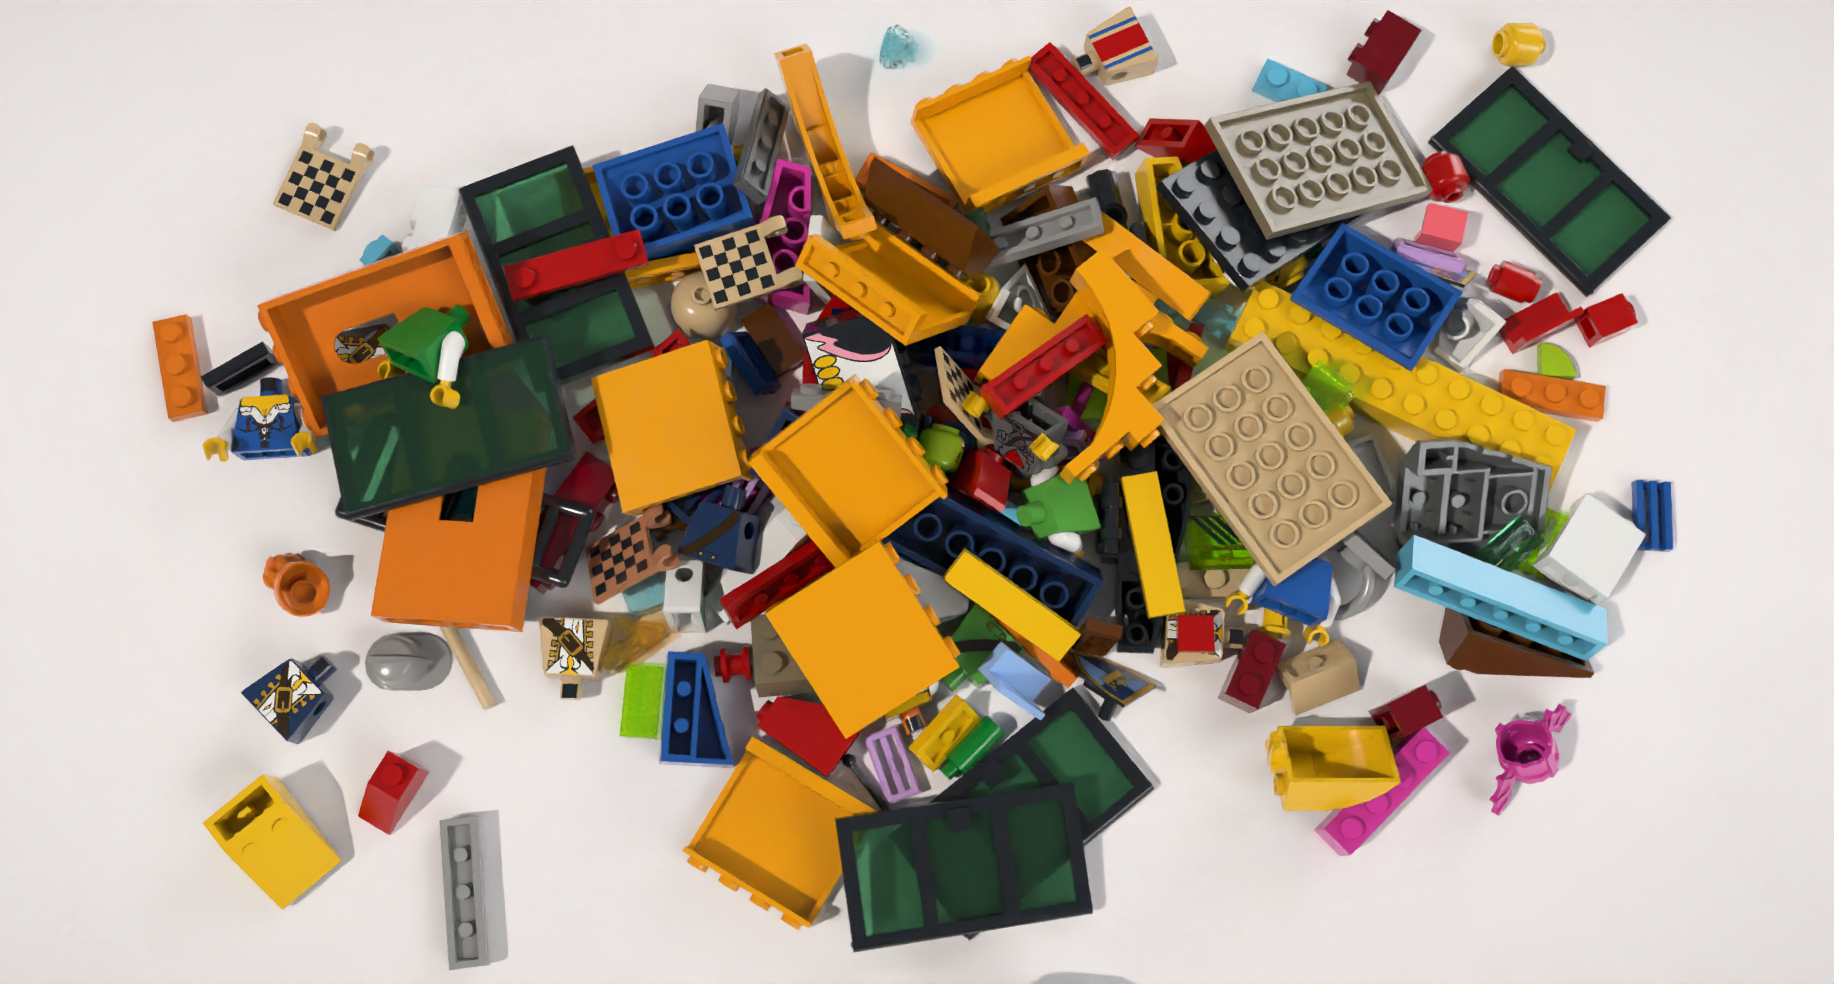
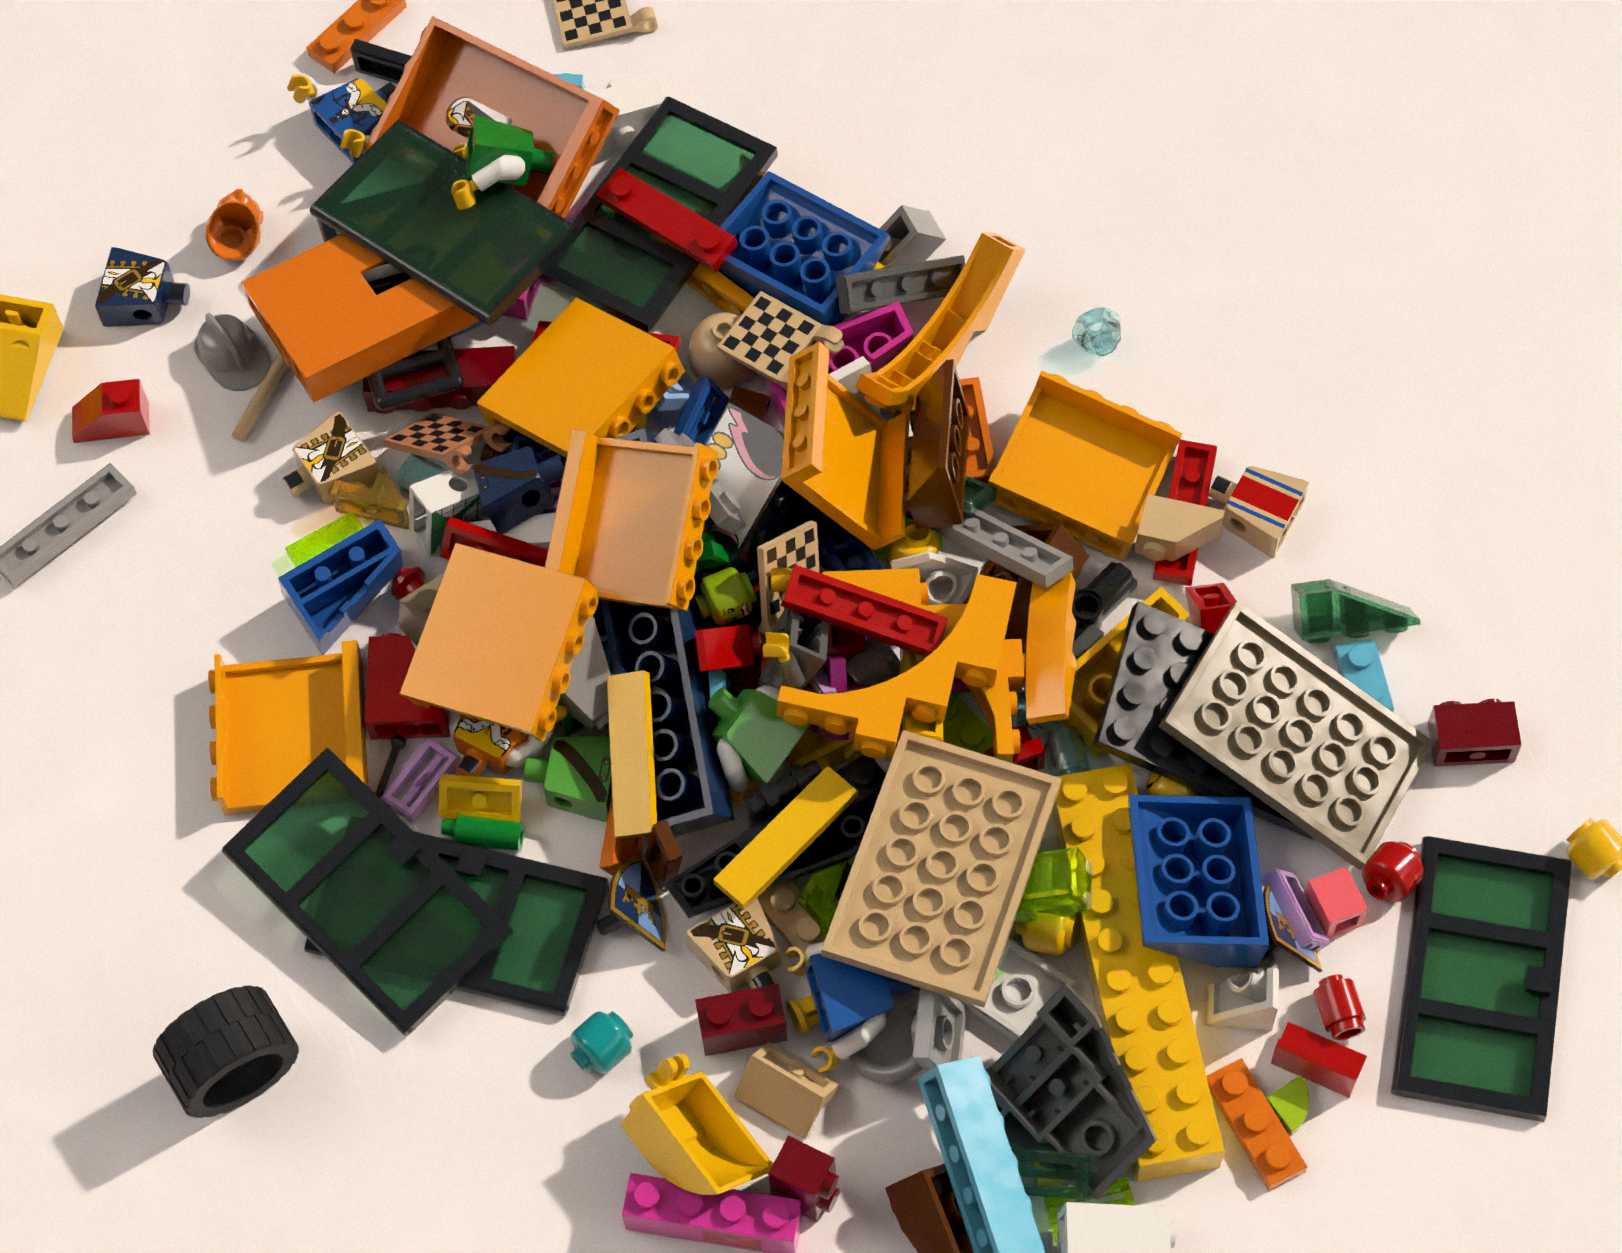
camera: 60 degrees right, 15 degrees down
(1015, 678) = (570, 815): light blue panel -> none
(1099, 117) = (1175, 528): none -> tan slope
(1195, 634) = (732, 935): red tile -> none
(1198, 779) = (601, 1042): none -> teal head
(1236, 61) = (1335, 609): none -> clear green slope
(1606, 320) = (1378, 1121): red brick -> none

